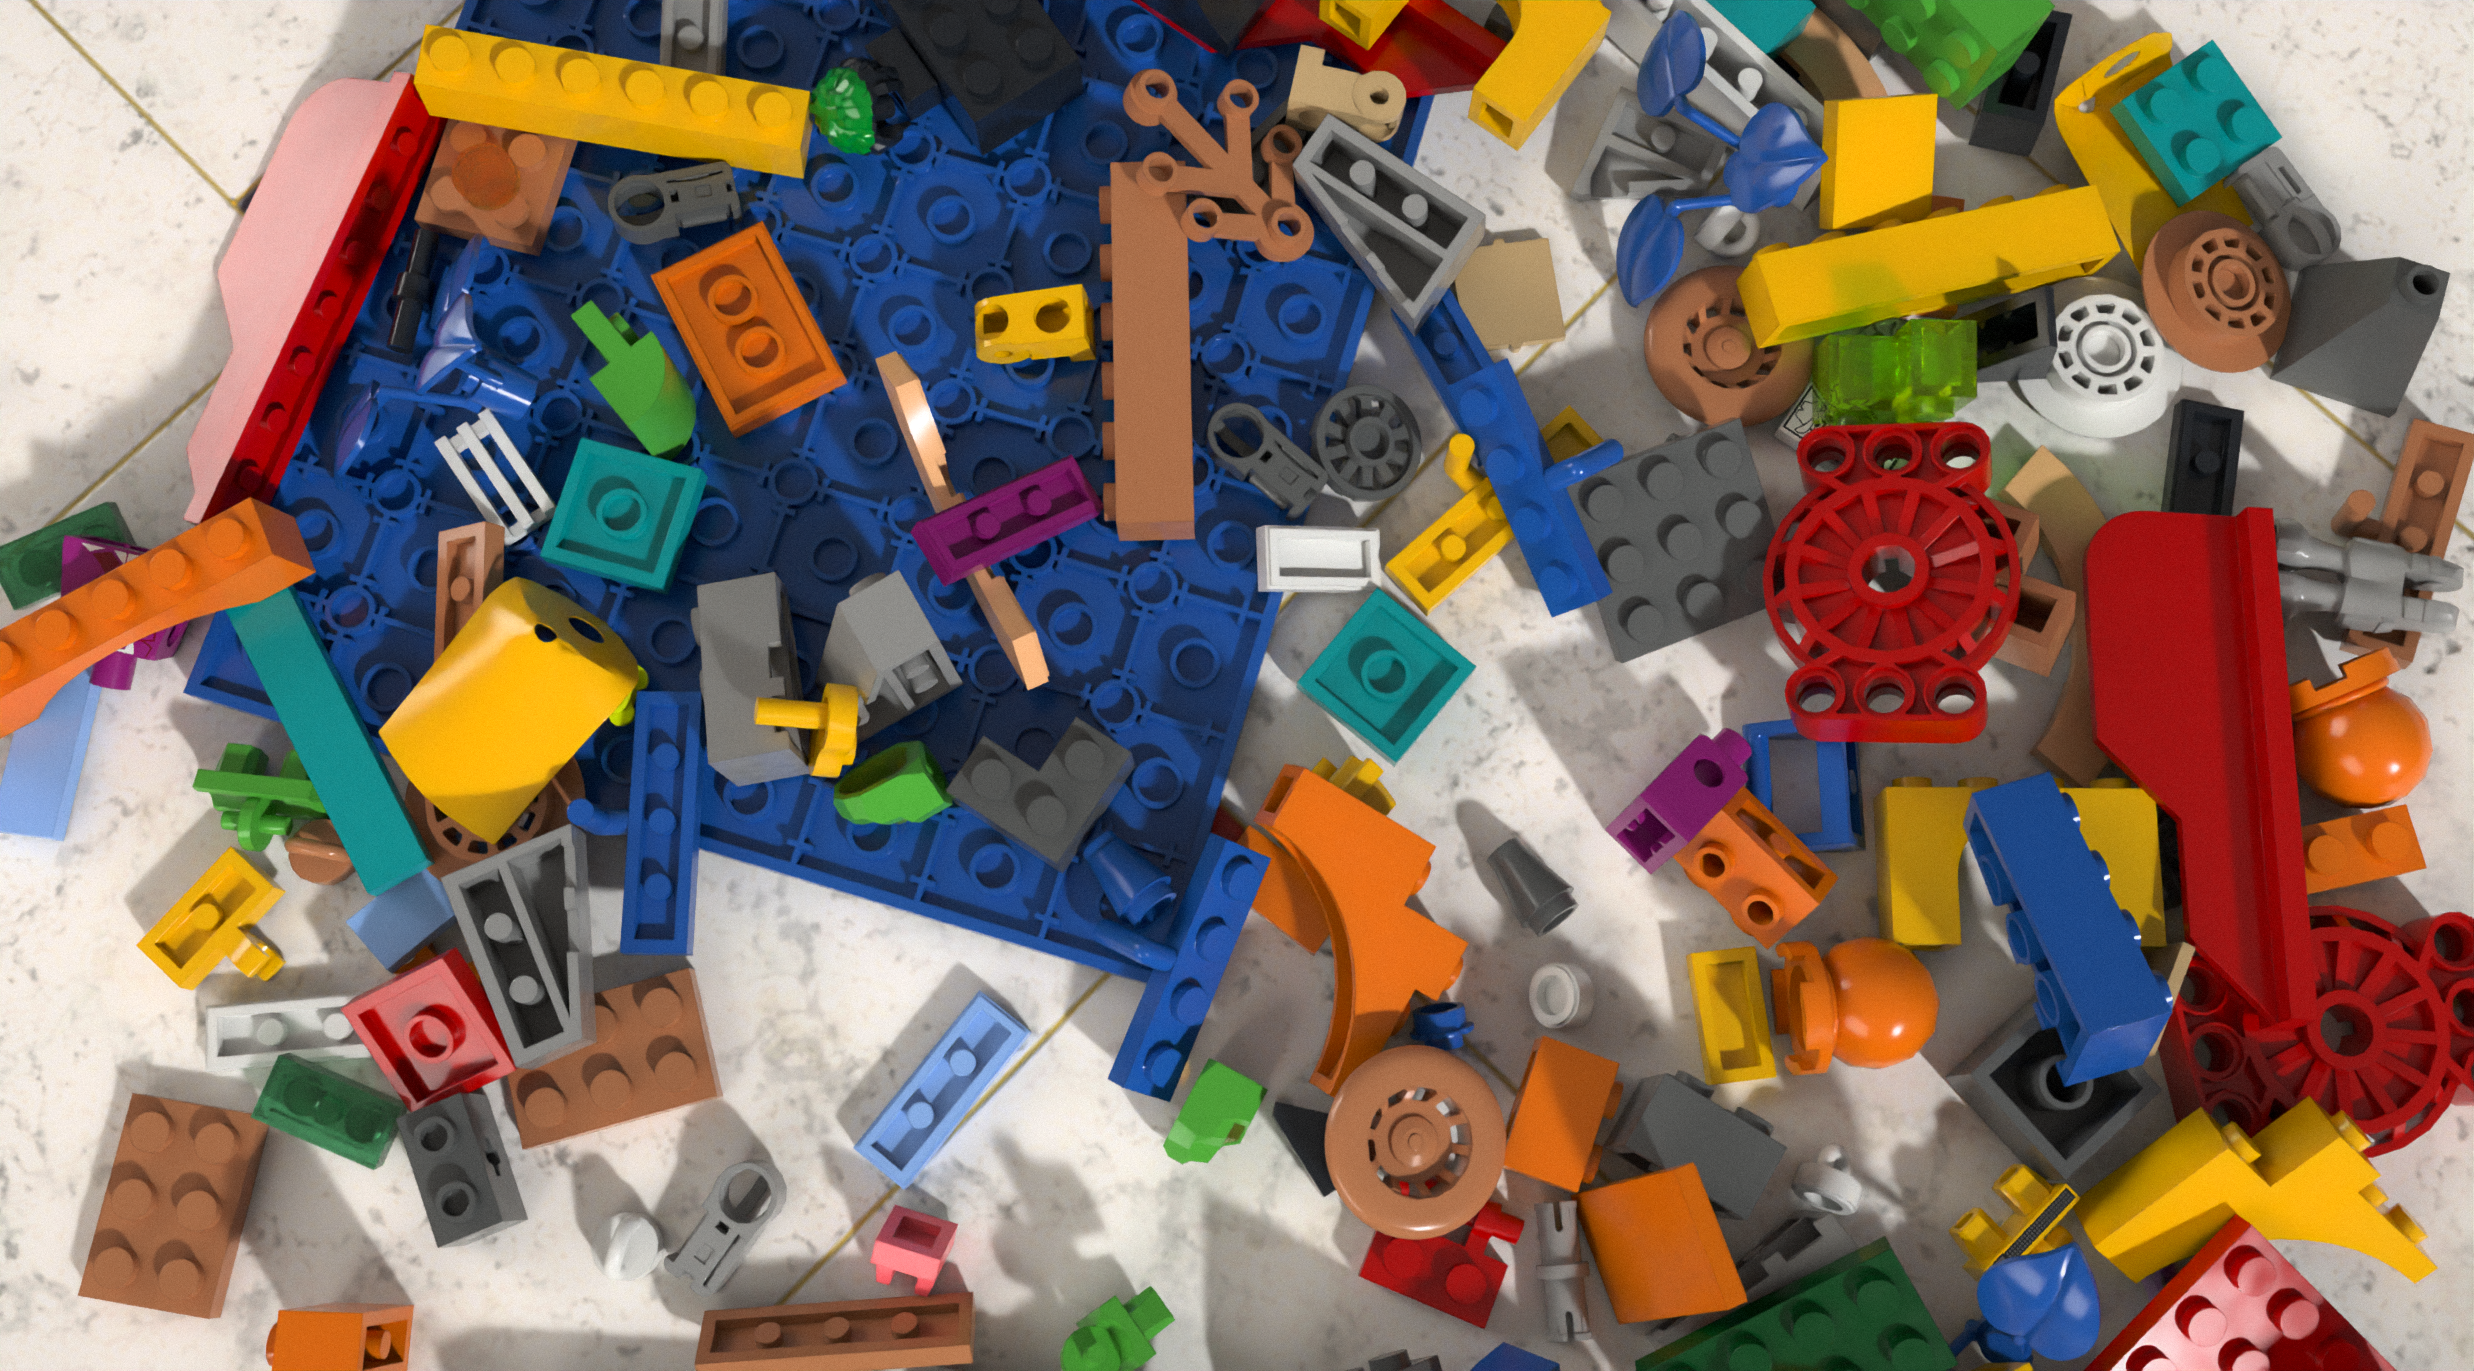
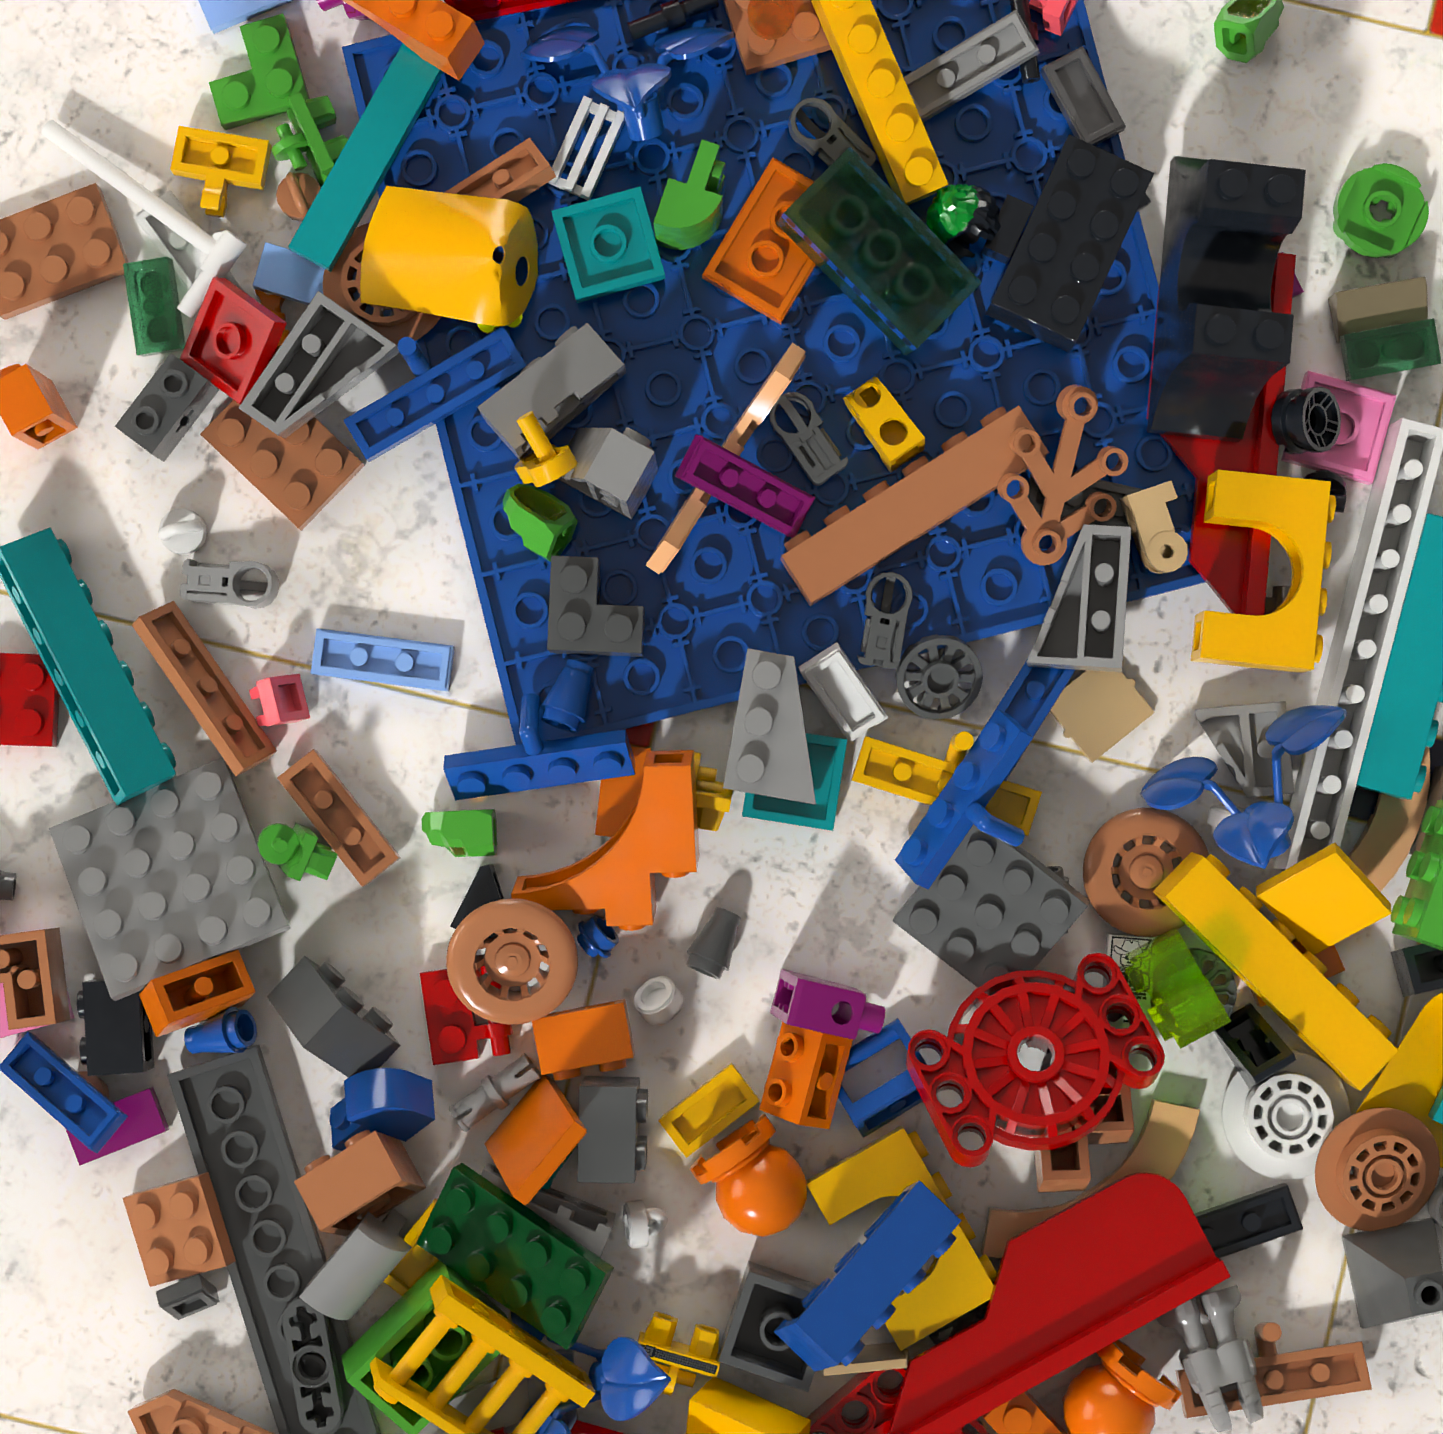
camera: 60 degrees right, 10 degrees up
(166, 809) = (268, 84): none -> bright green plate
(317, 988) = (217, 251): none -> white bar
(835, 212) = (878, 252): none -> clear green brick
(1010, 425) = (811, 445): none -> dark grey piece
(1103, 1262) = (338, 817): none -> nougat plate
(1317, 663) = (769, 733): none -> light grey wedge

